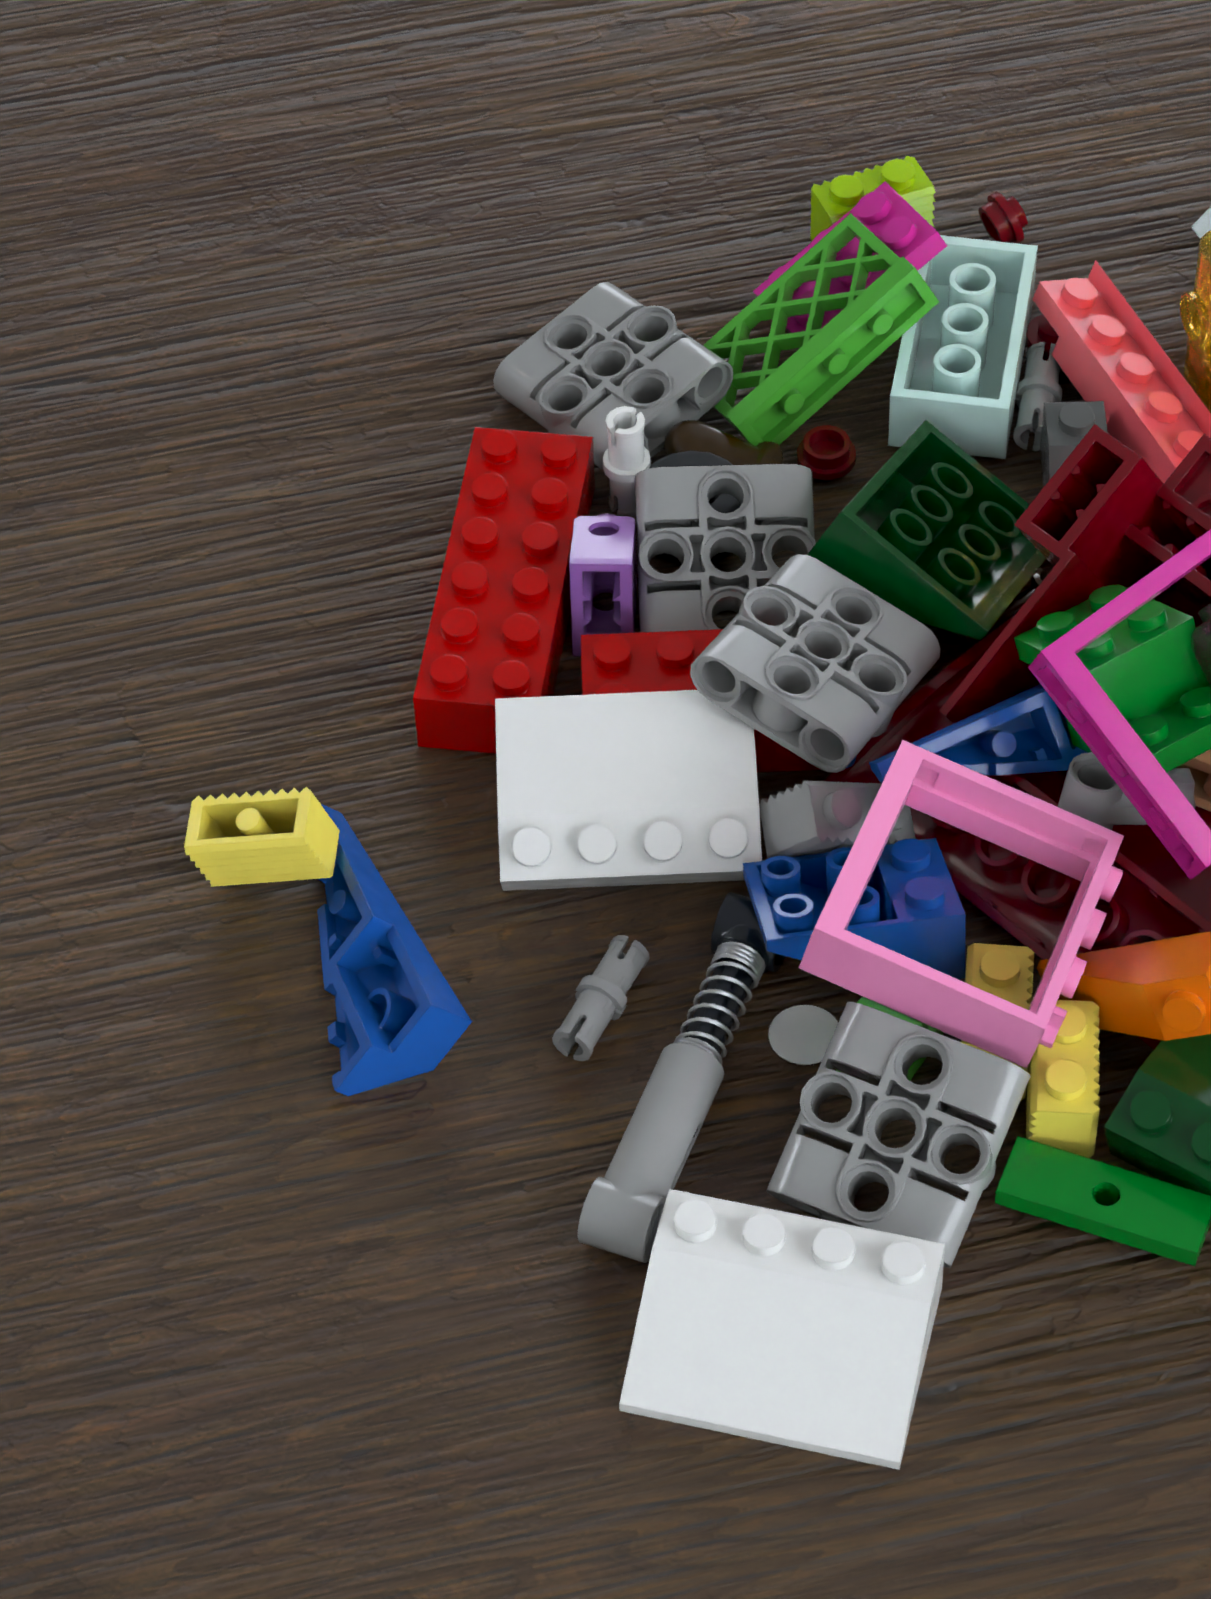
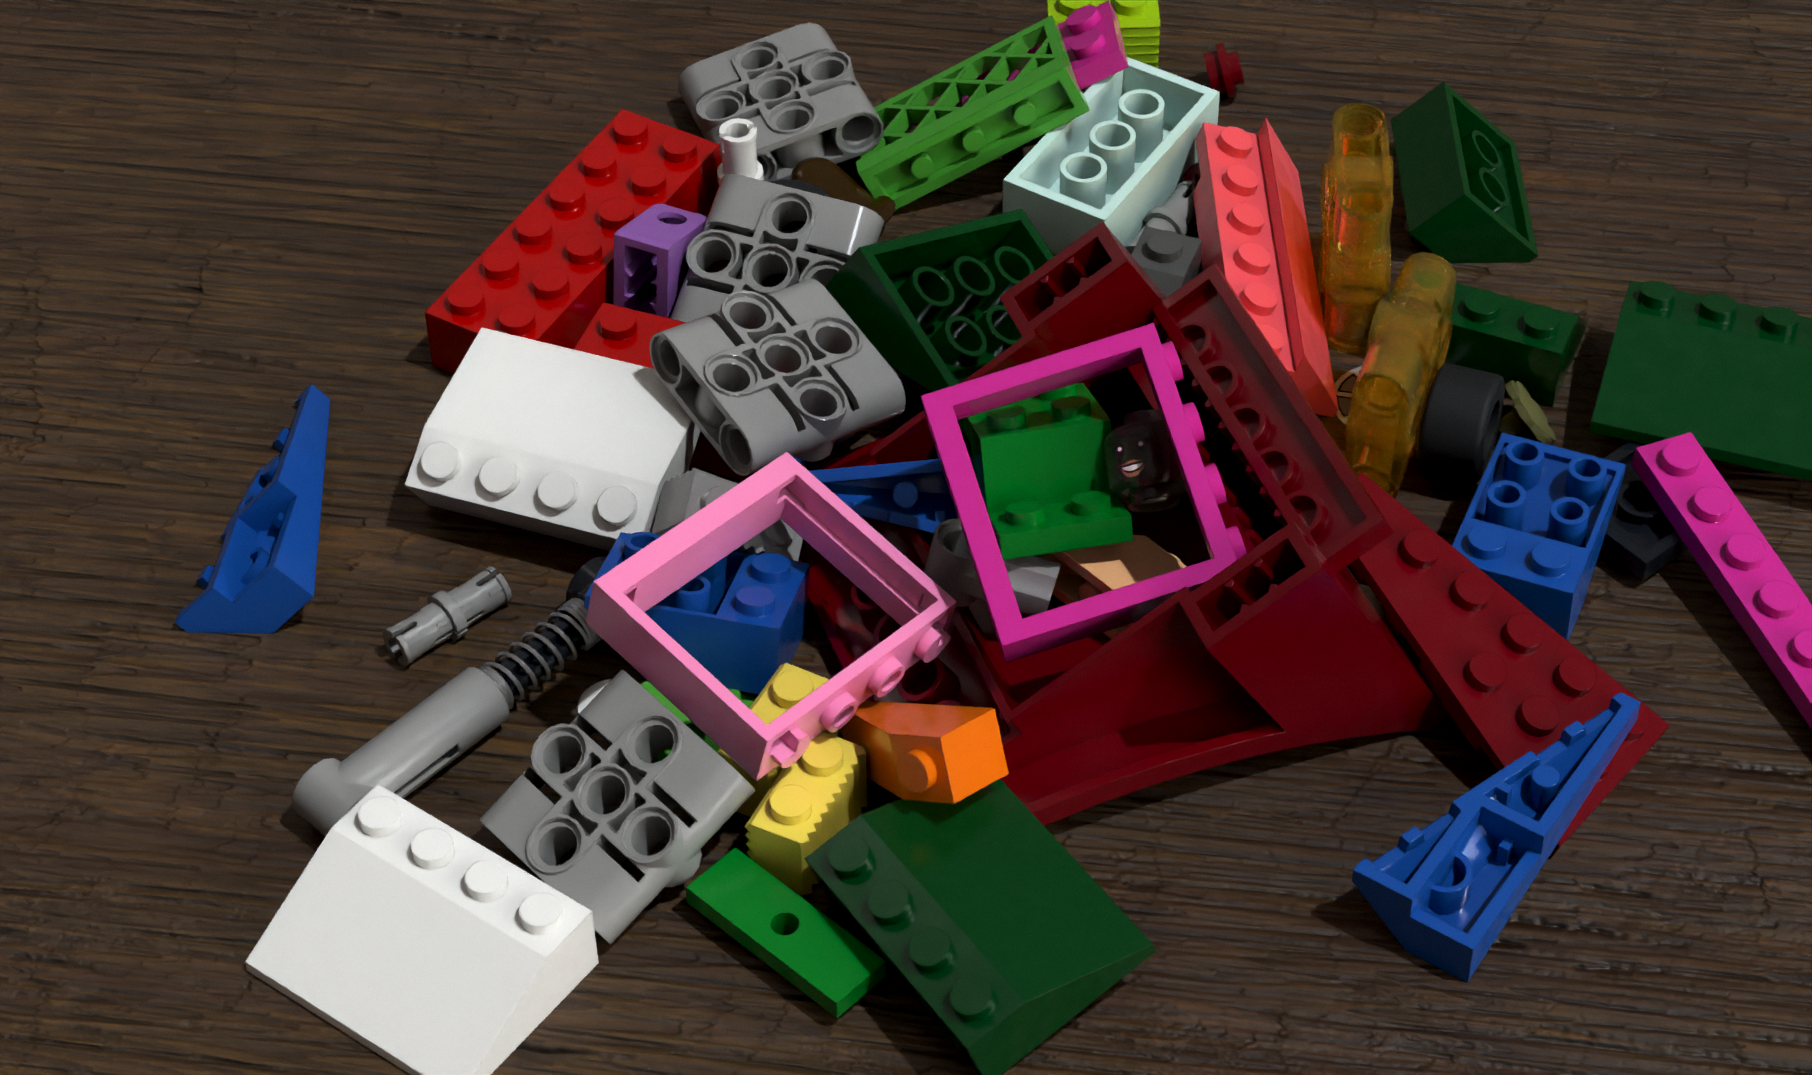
camera: 20 degrees right, 5 degrees down
(261, 838) = (228, 389): light yellow brick -> none
(827, 452) = (935, 214): dark red plate -> none

